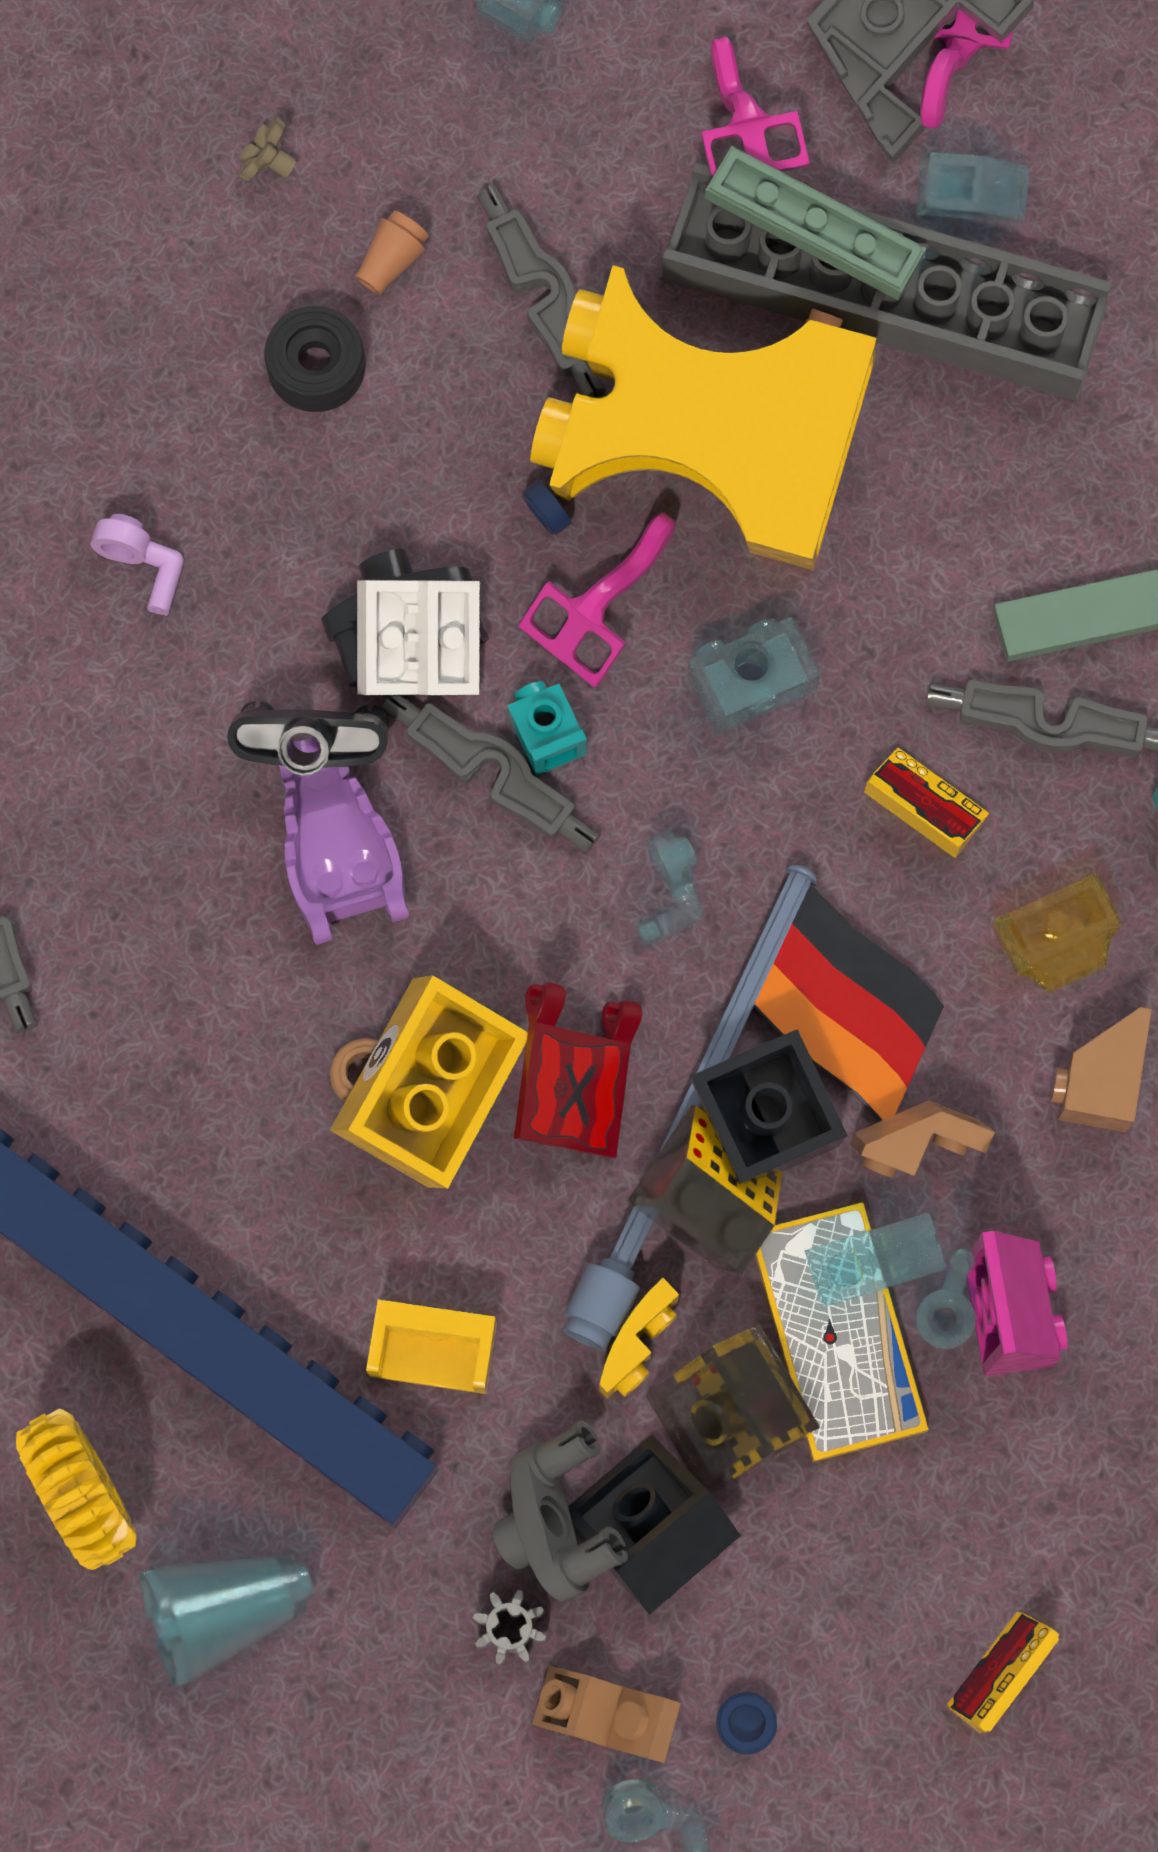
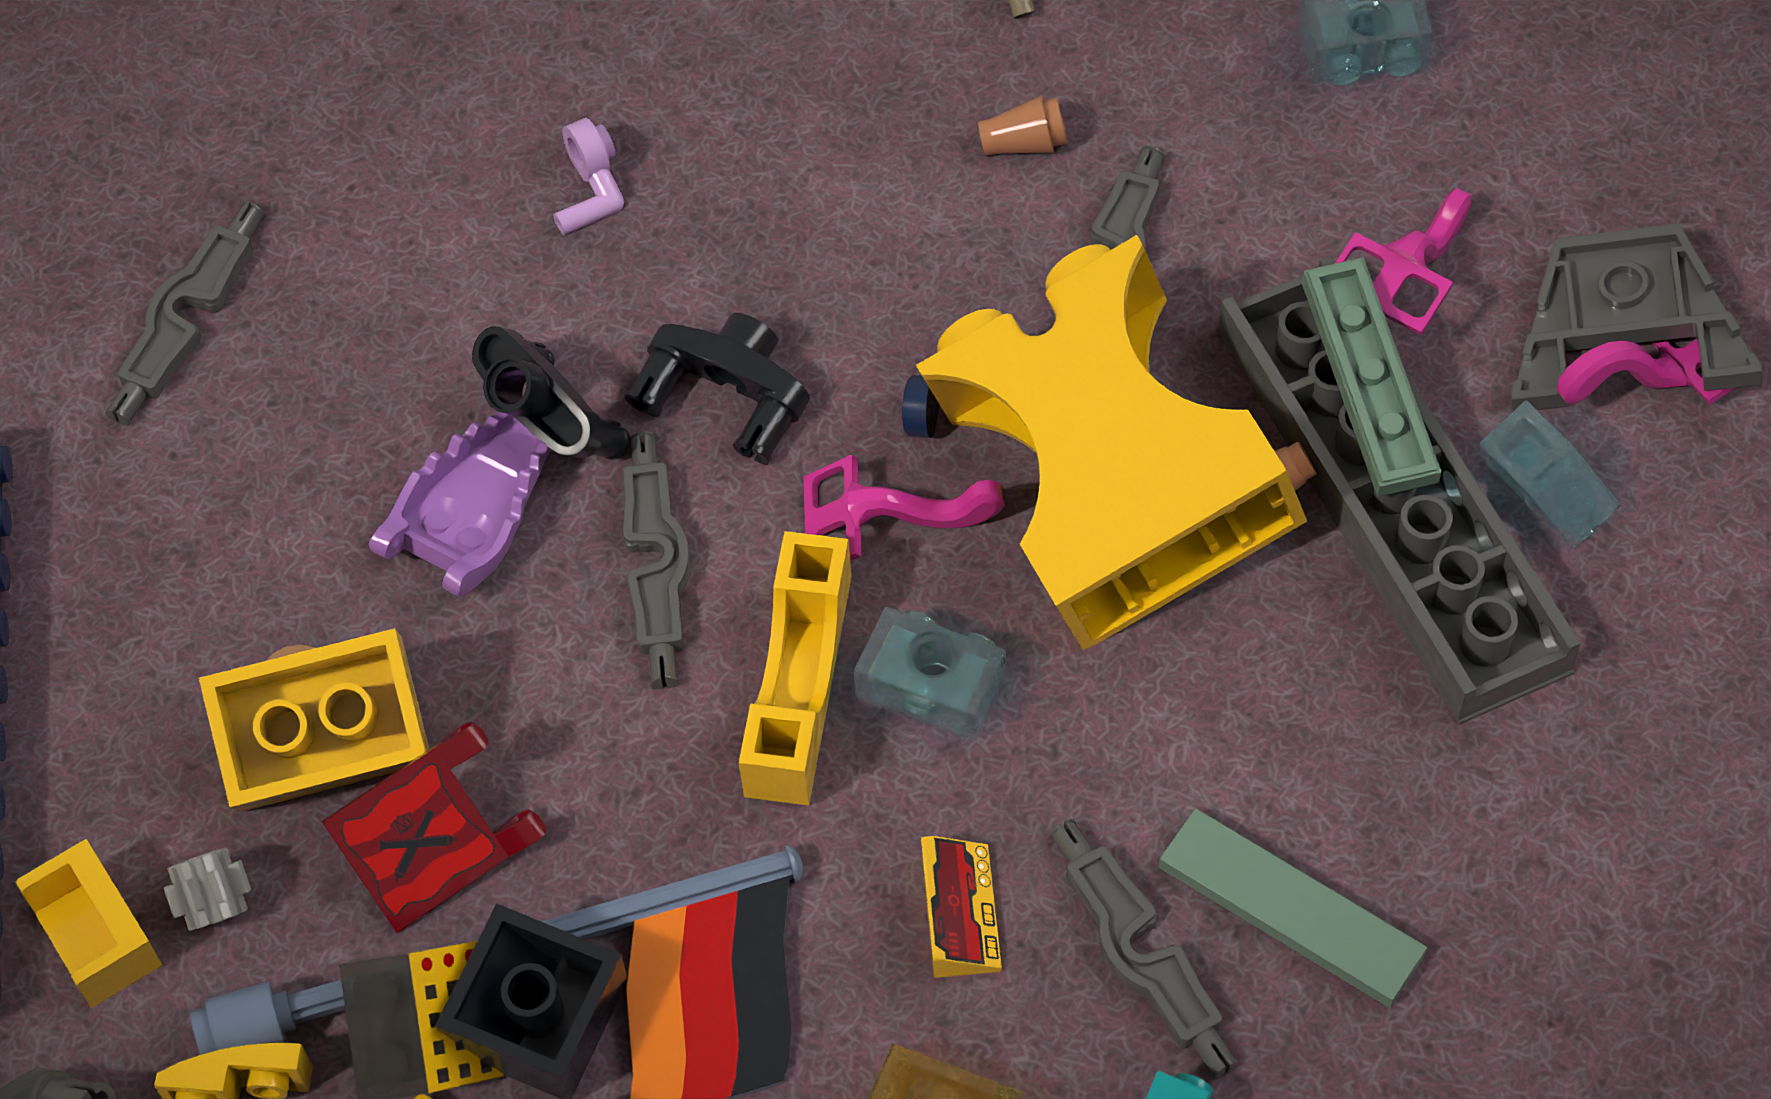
camera: 50 degrees right, 15 degrees down
(308, 329) = (878, 122): black tyre -> none
(418, 637) = (706, 402): white slope -> none
(481, 1250) = (207, 889): none -> light grey gear
(546, 745) = (731, 578): teal brick -> none
(673, 862) = (701, 752): clear light blue plate -> none
(699, 785) = (791, 709): none -> yellow arch

